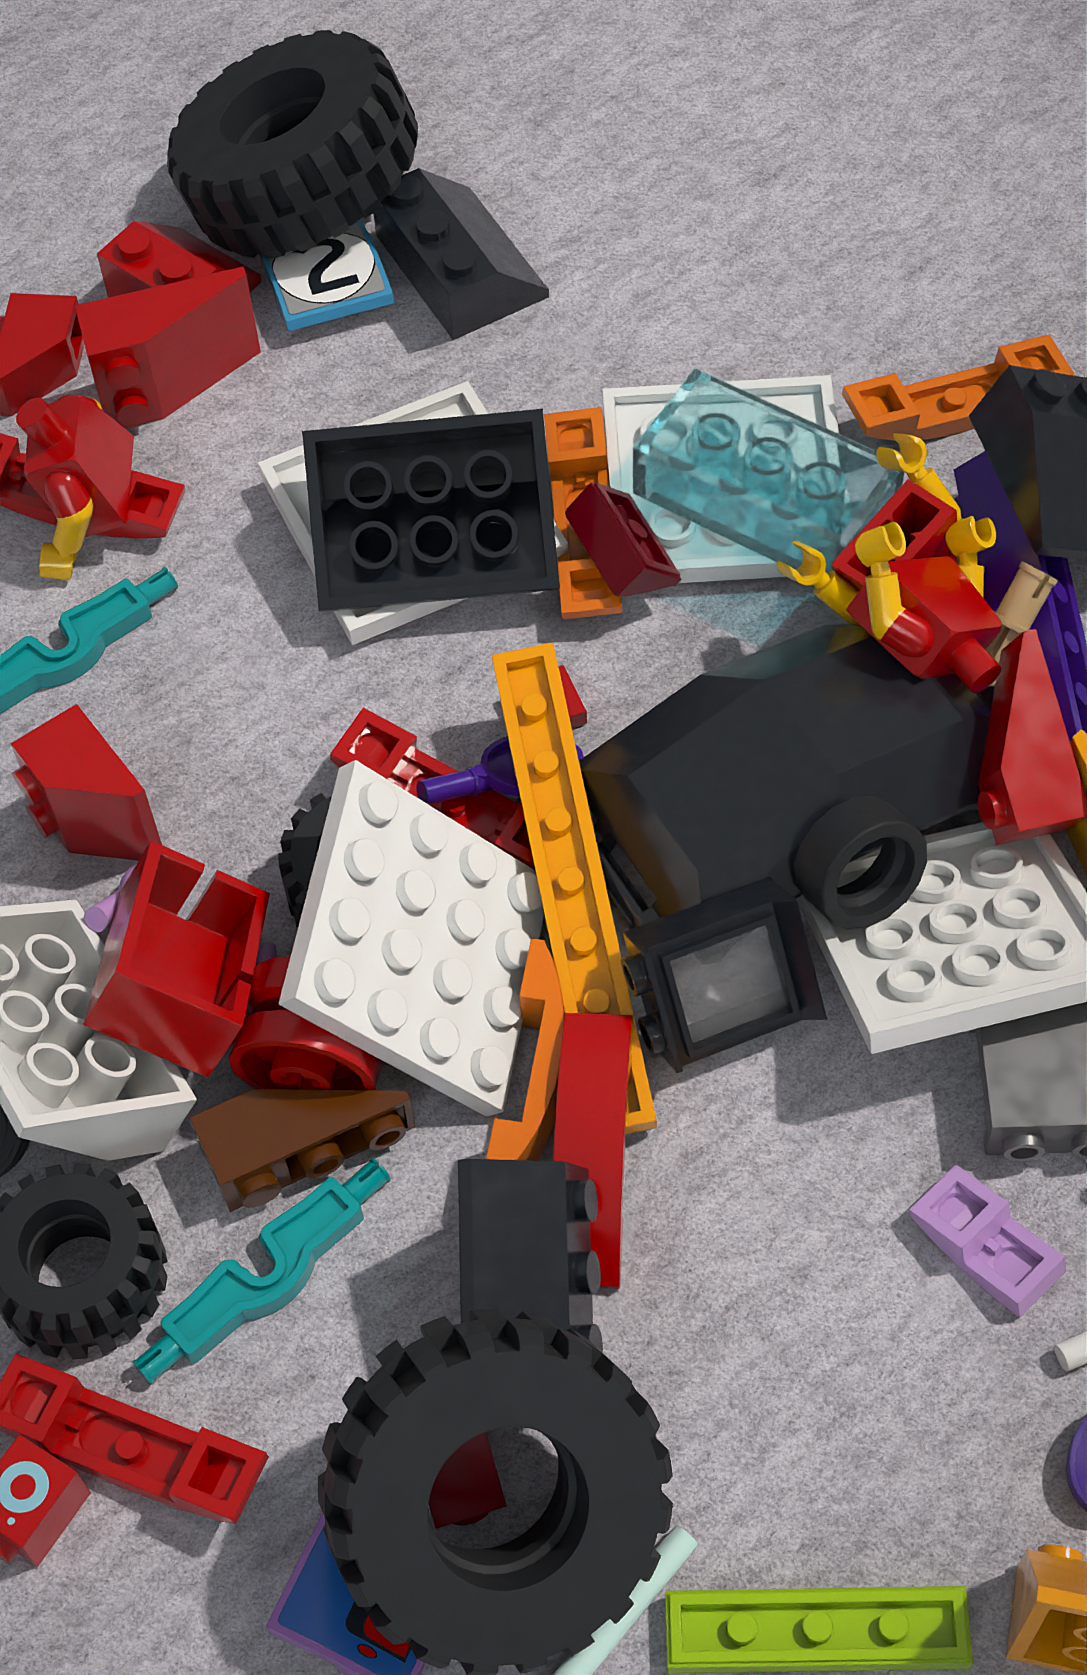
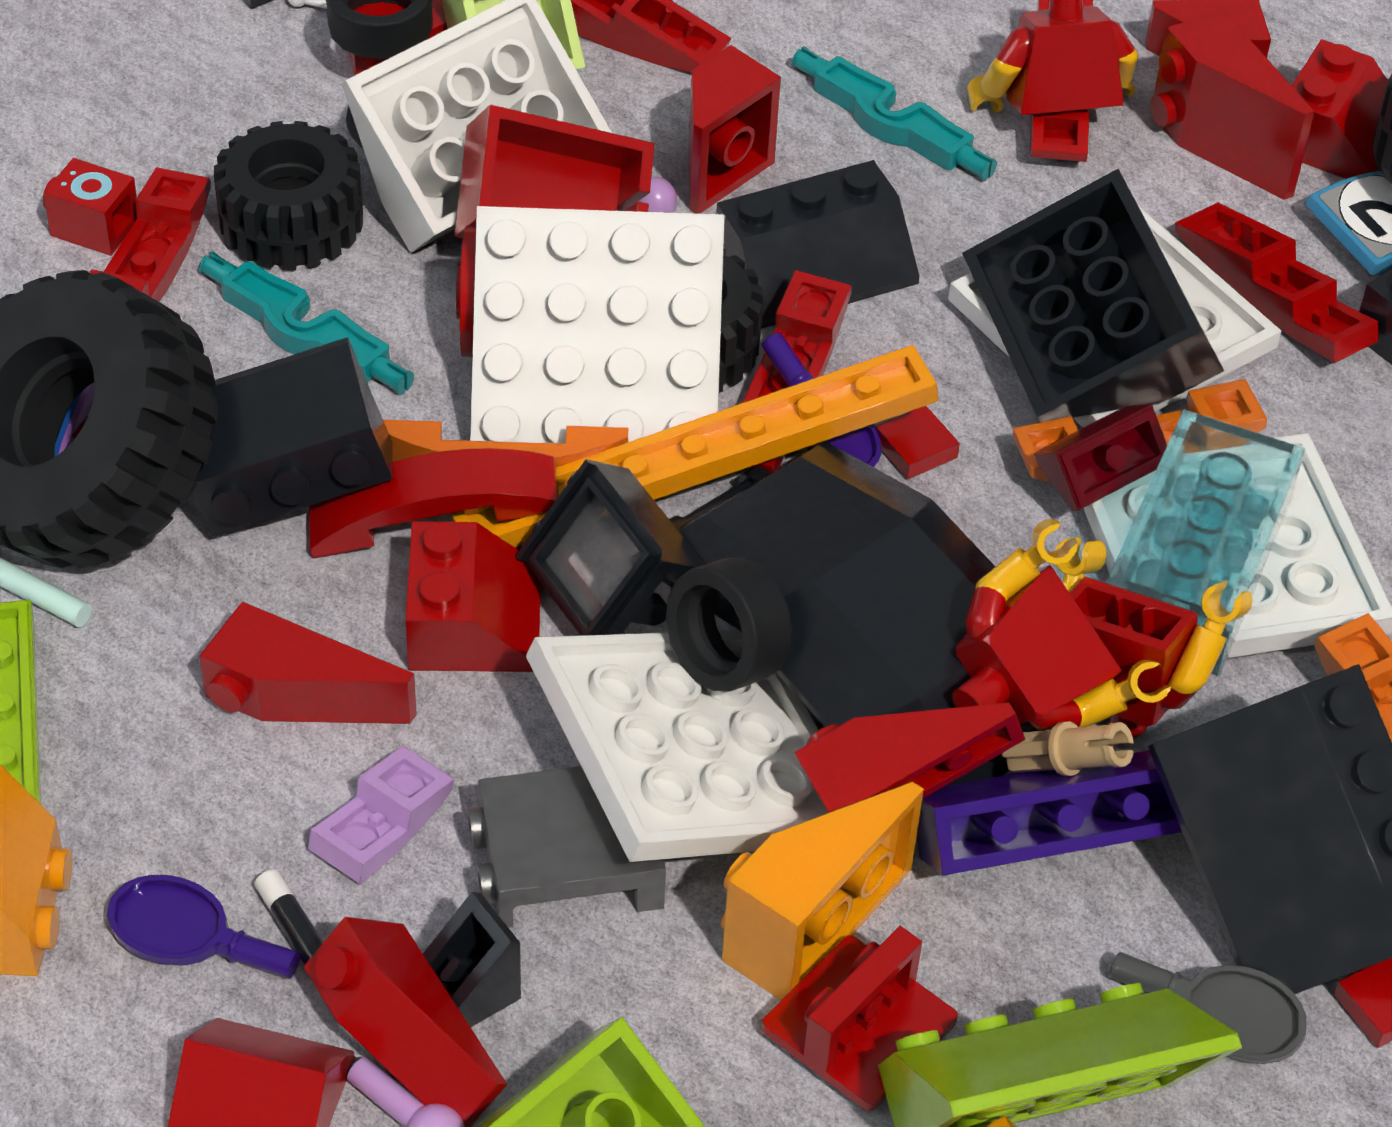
camera: 75 degrees right, 10 degrees down
(261, 737) = (826, 225): none -> black slope
(285, 1135) = (412, 299): reddish brown slope -> none
(373, 382) = (1266, 273): none -> red slope
(725, 1133) = (468, 600): none -> red slope
(802, 1324) = (298, 675): none -> red slope

